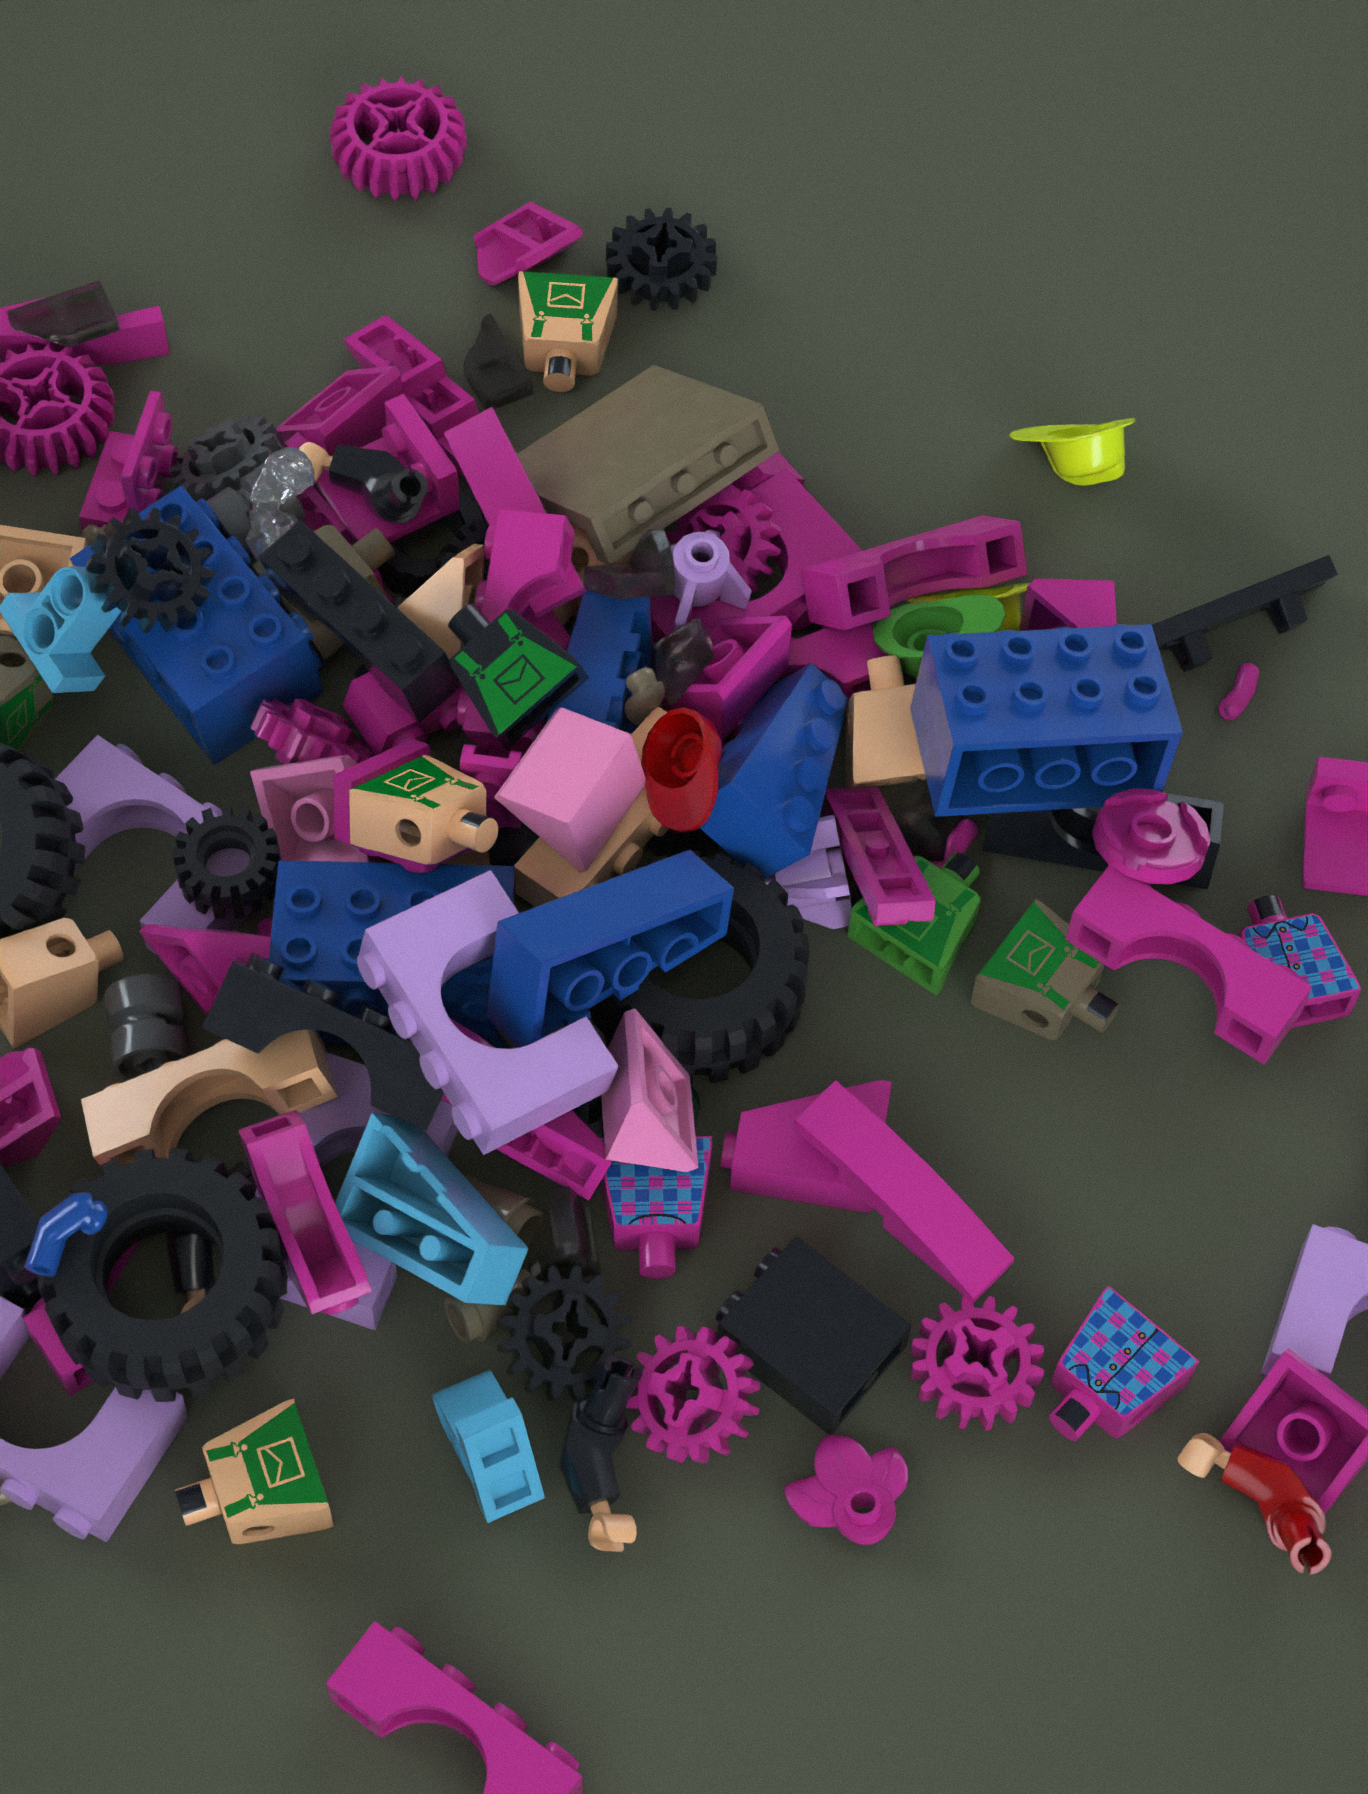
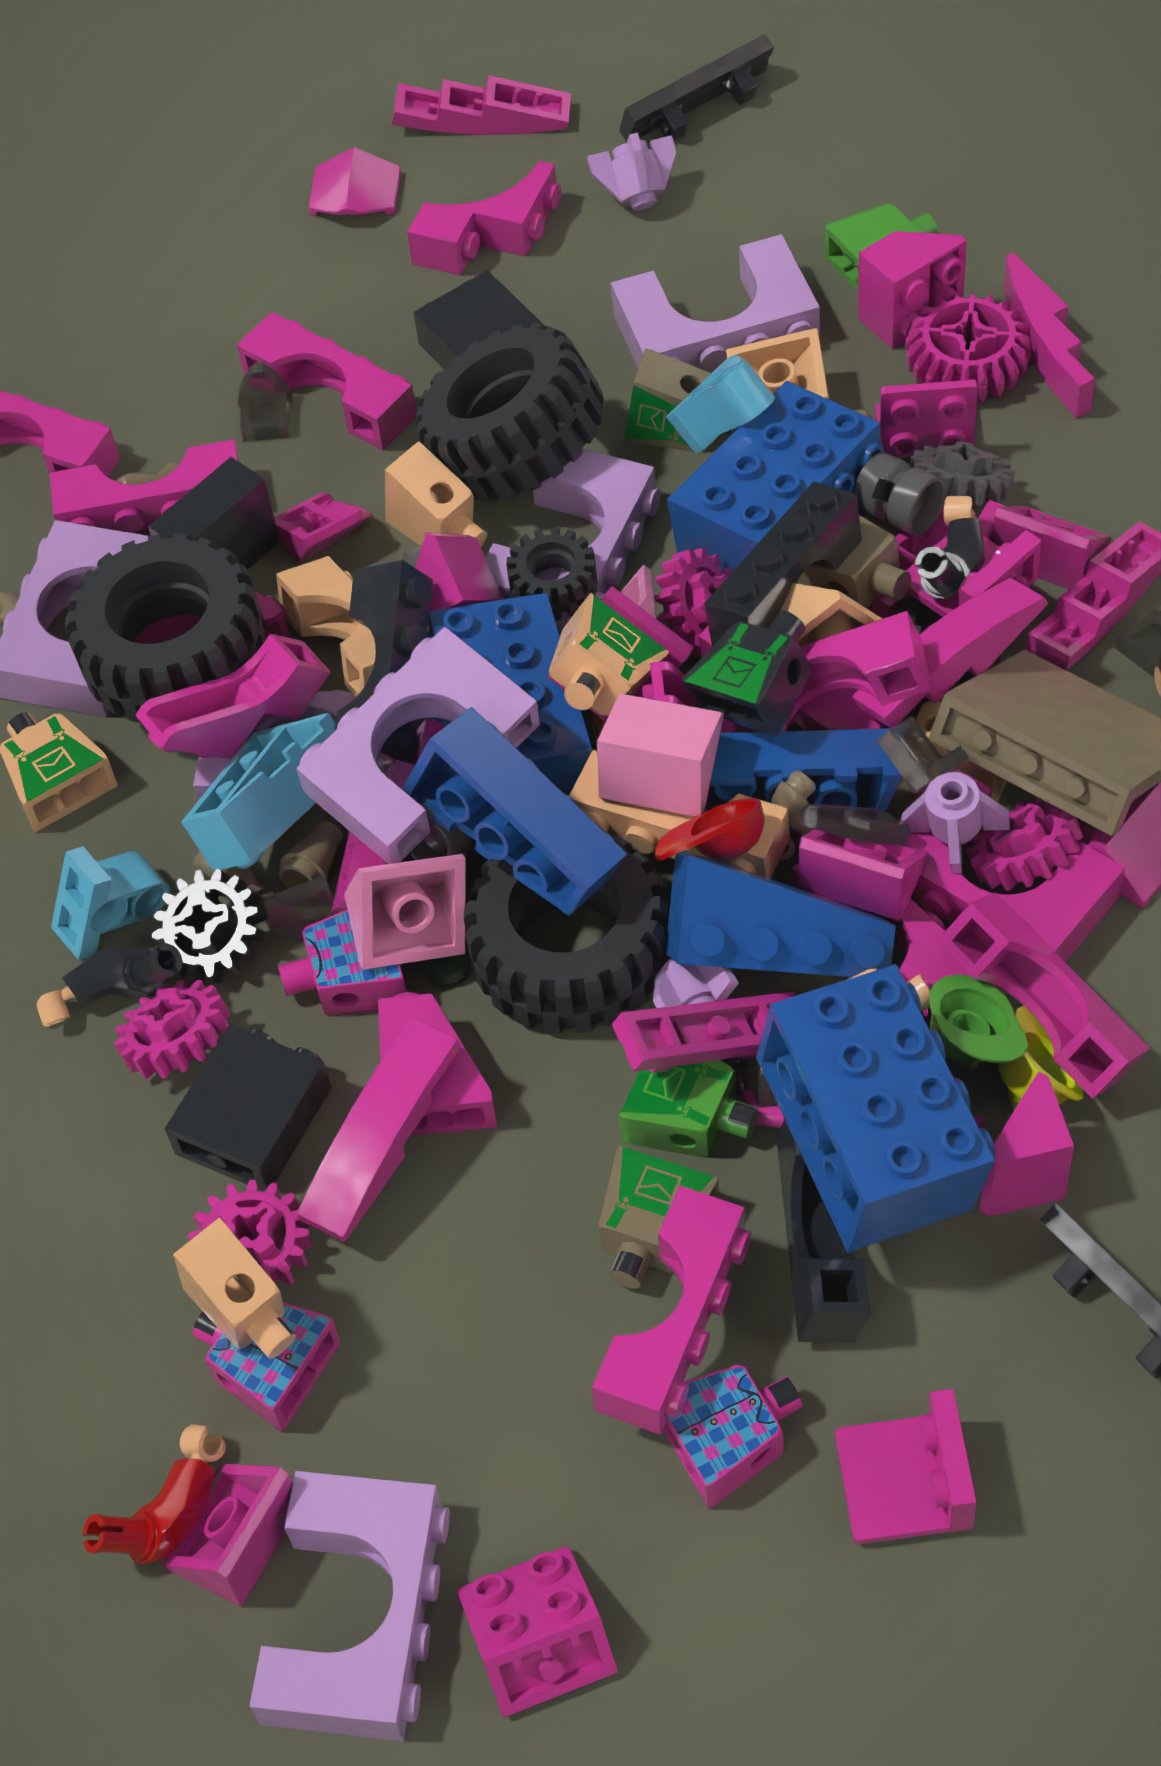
camera: 85 degrees right, 5 degrees down
(58, 1224) = (155, 530): blue arm -> none
(67, 316) = (1052, 324): clear smoke tile -> none
(168, 551) = (784, 417): black gear -> none
(282, 476) = (908, 479): clear arm -> none
(847, 1481) = (125, 1171): dark pink plate -> none
(1082, 1356) = (233, 1290): none -> light nougat torso
(1151, 836) = (788, 1239): dark pink tile -> none
(1244, 689) = (1048, 1337): dark pink piece -> none

